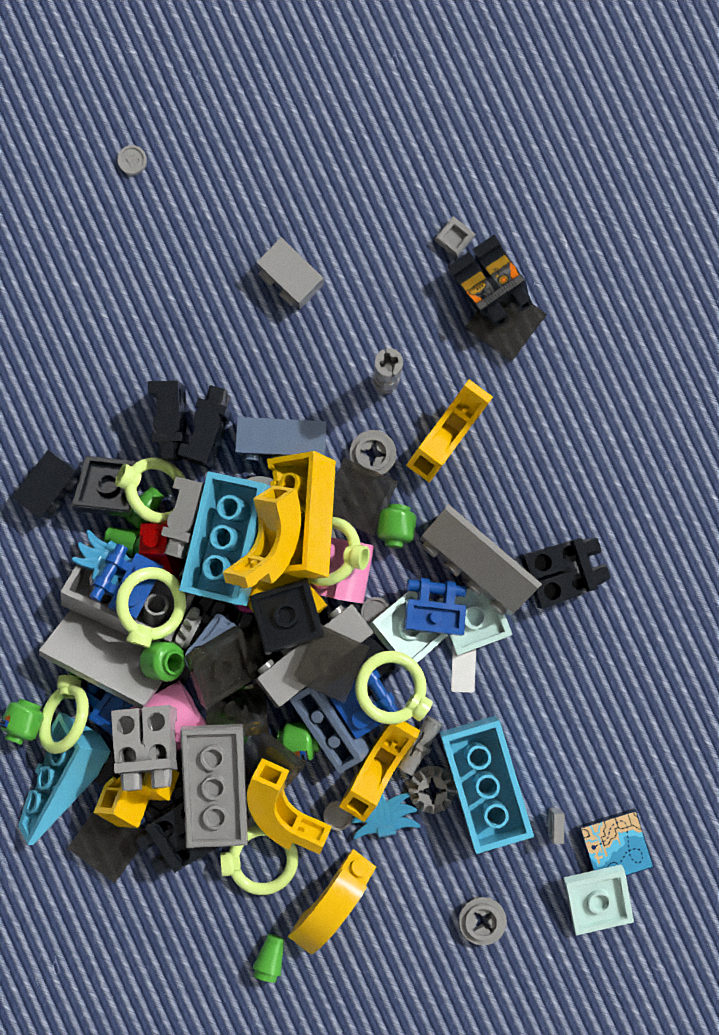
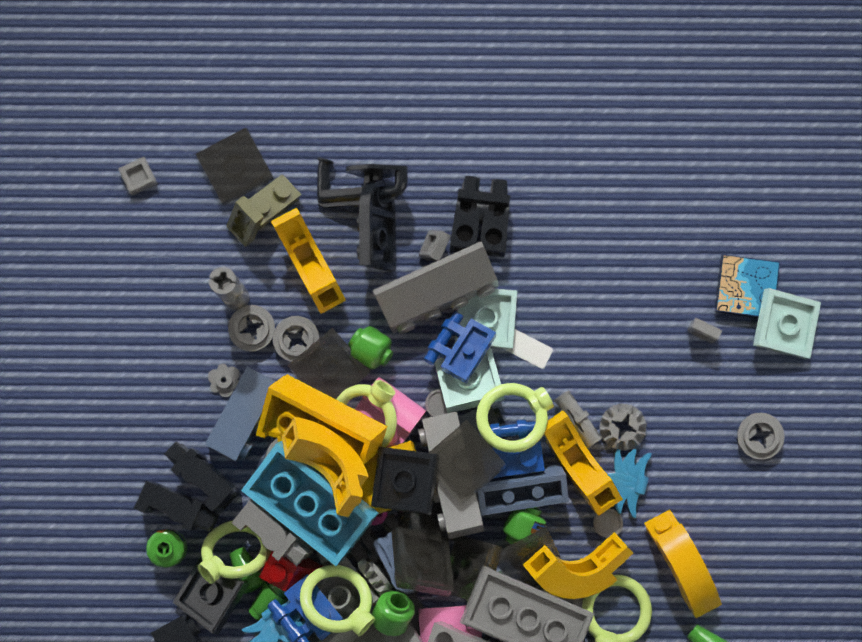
camera: 65 degrees left, 5 degrees down
(137, 433) = (176, 544): none -> bright green head
(289, 273) = (98, 337): light grey brick -> none
(305, 397) = (215, 377): none -> light grey plant
(363, 394) = (239, 322): none -> light grey gear
(472, 362) = (254, 213): none -> olive bracket
(486, 784) = (638, 374): medium azure brick -> none
(498, 290) = (204, 162): black hips -> none
(518, 539) = (434, 245): none -> light grey tile
(527, 470) = (376, 208): none -> black plate

